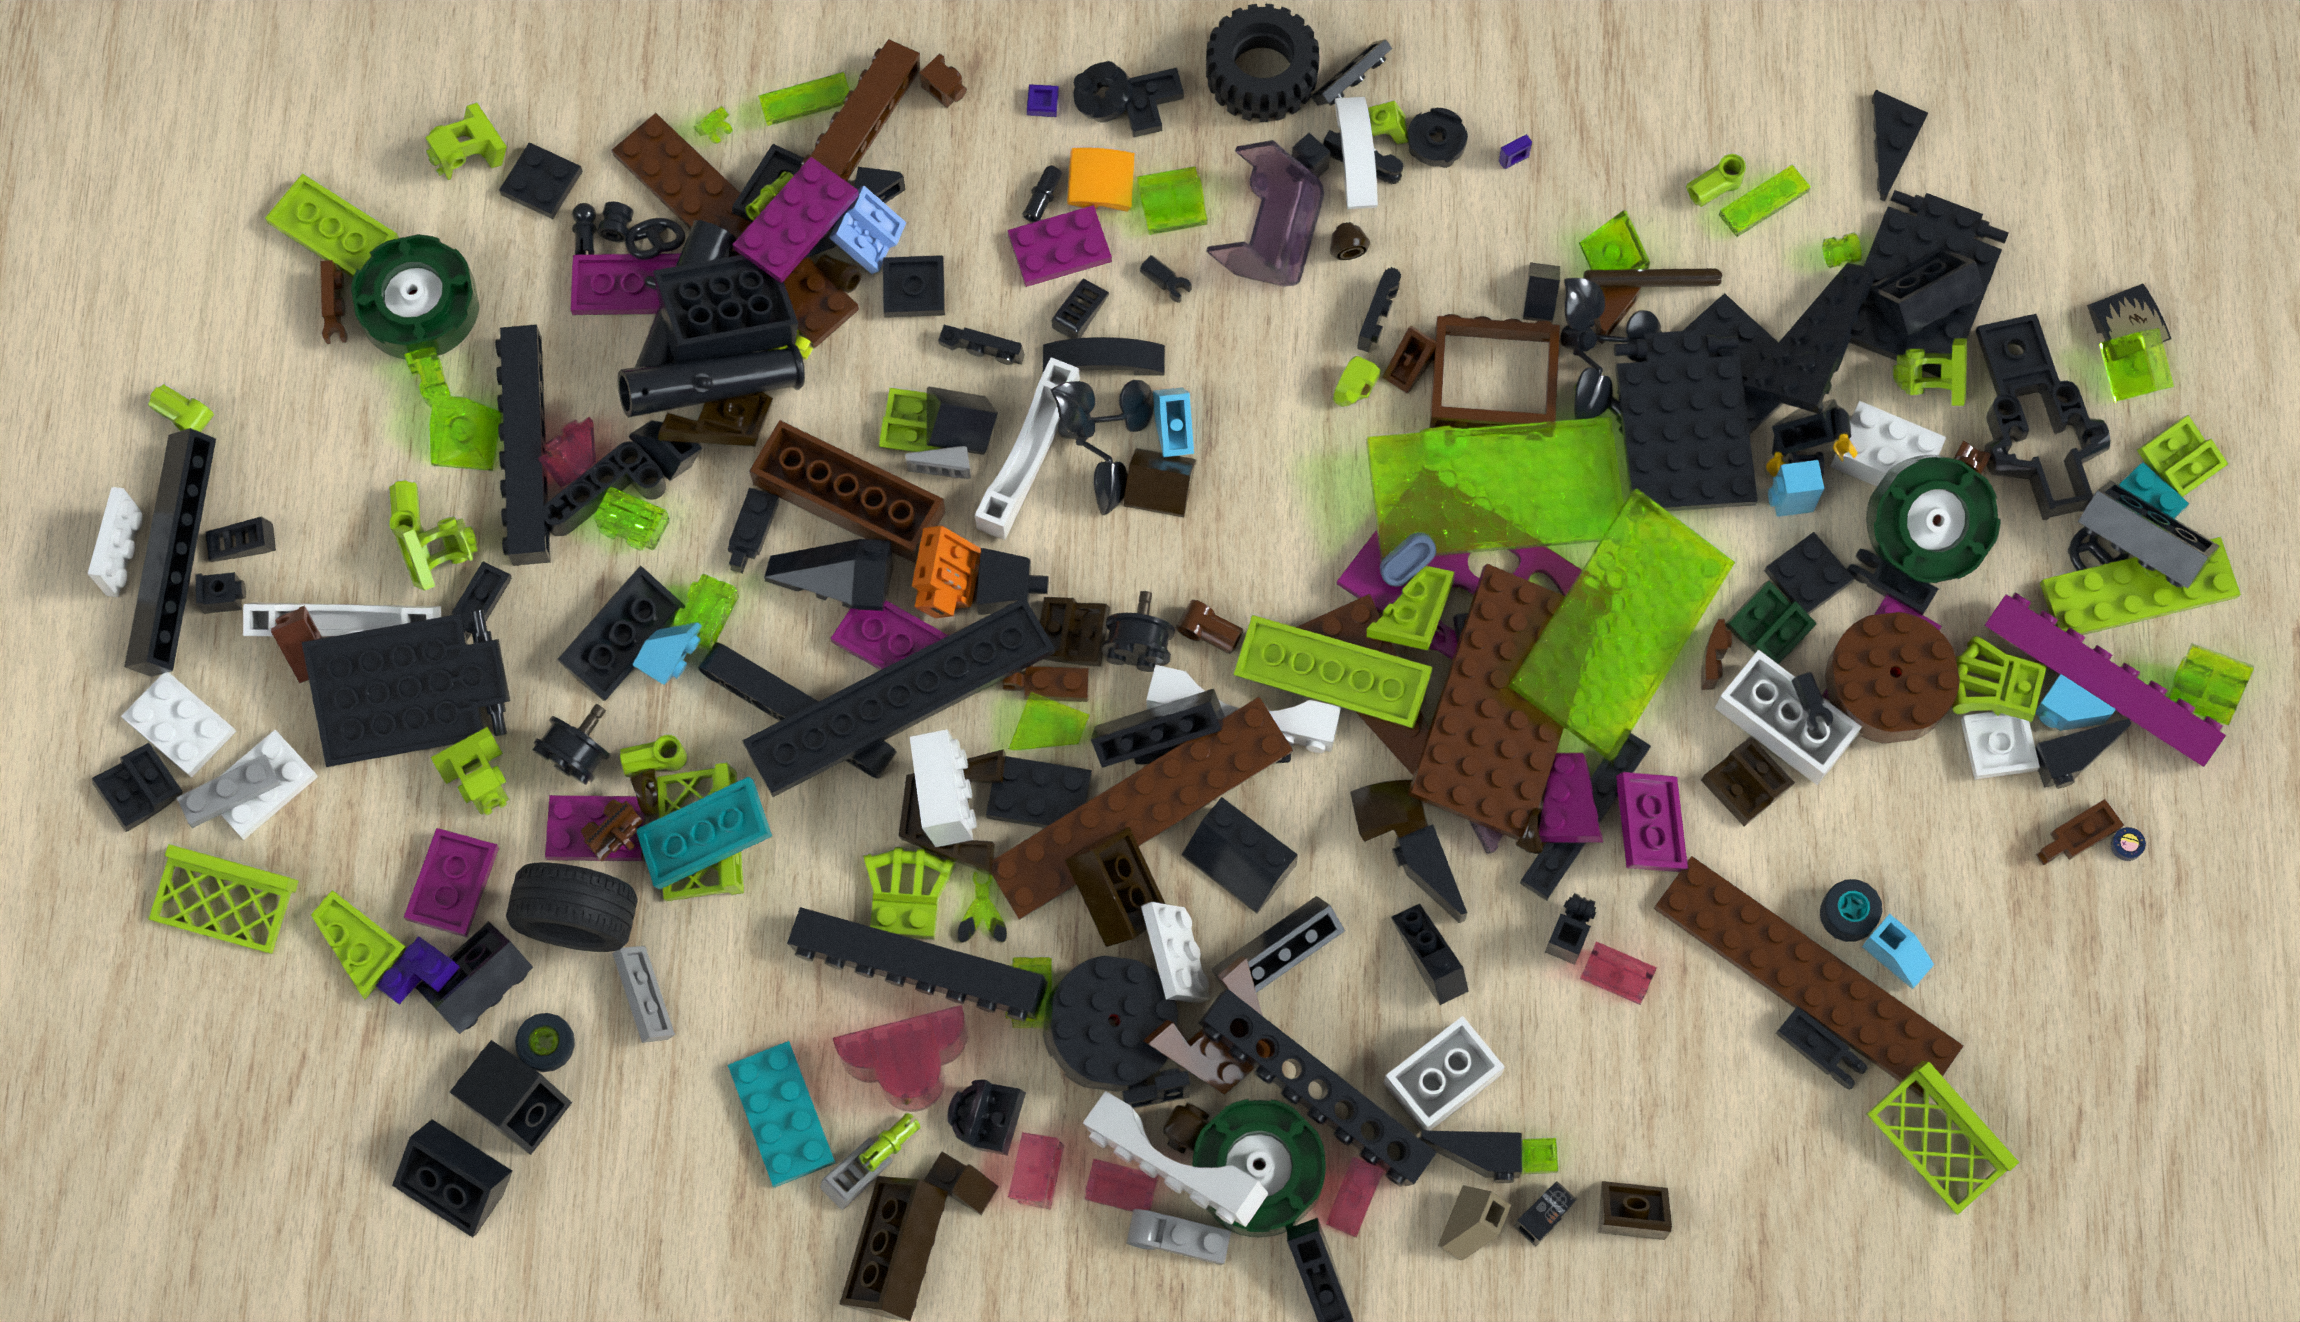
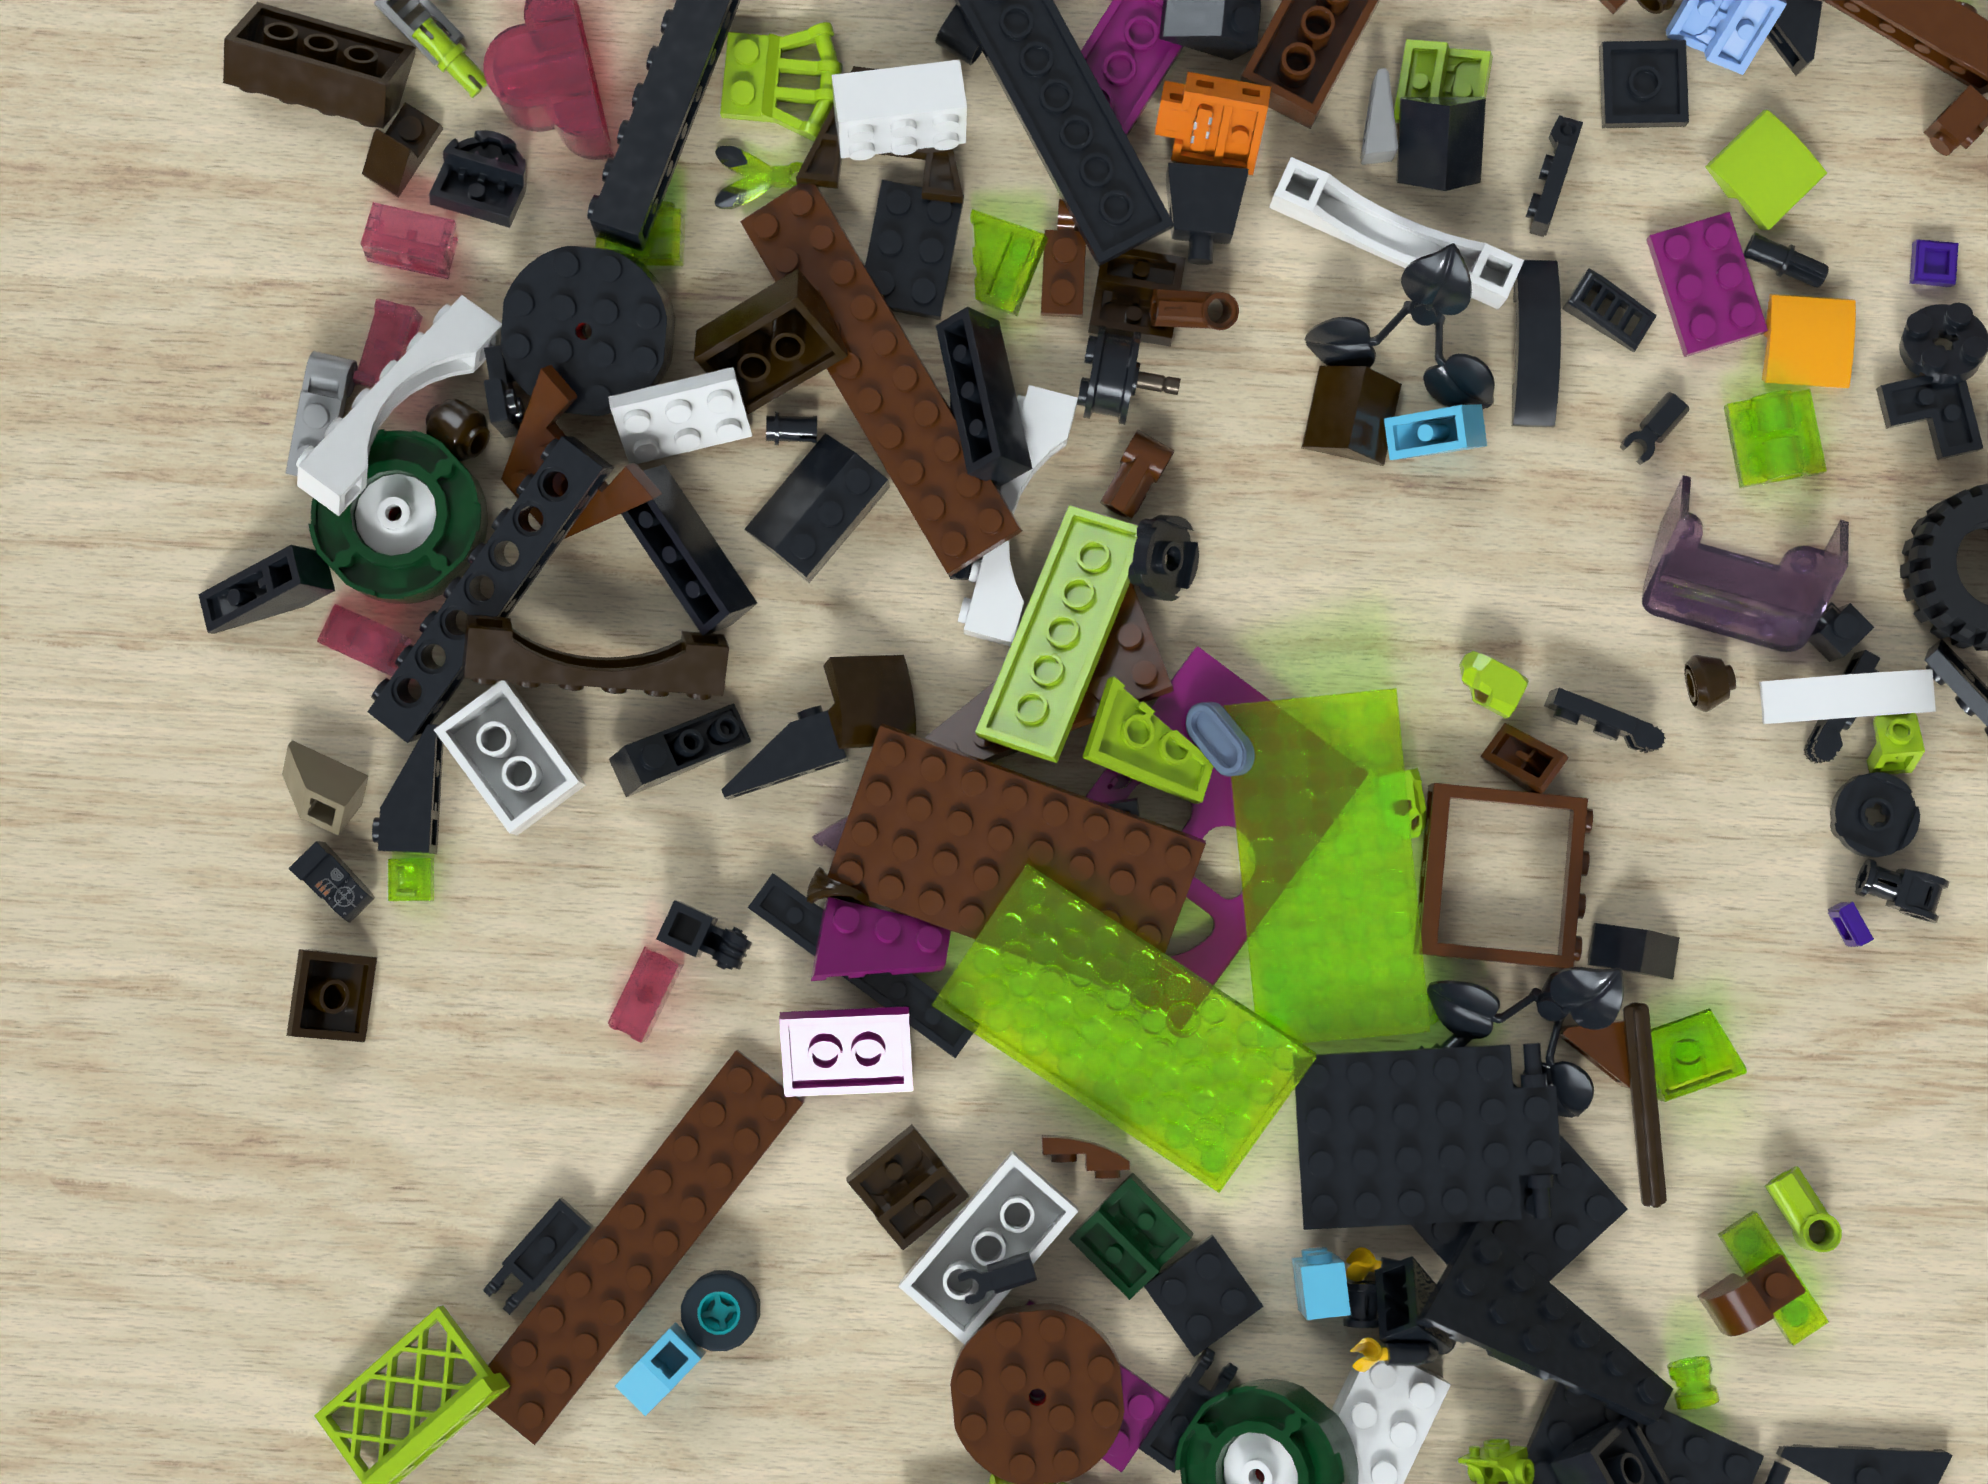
camera: 90 degrees right, 15 degrees up
(976, 206) = (1766, 169): none -> lime slope
(1085, 587) = (1190, 309): none -> reddish brown piece
(1179, 877) = (791, 428): none -> black pin
(1272, 603) = (1154, 541): none -> black plate
(1367, 942) = (687, 666): none -> dark brown arch
(1490, 115) = (1907, 890): none -> black connector
(1784, 212) = (1749, 1301): none -> reddish brown brick

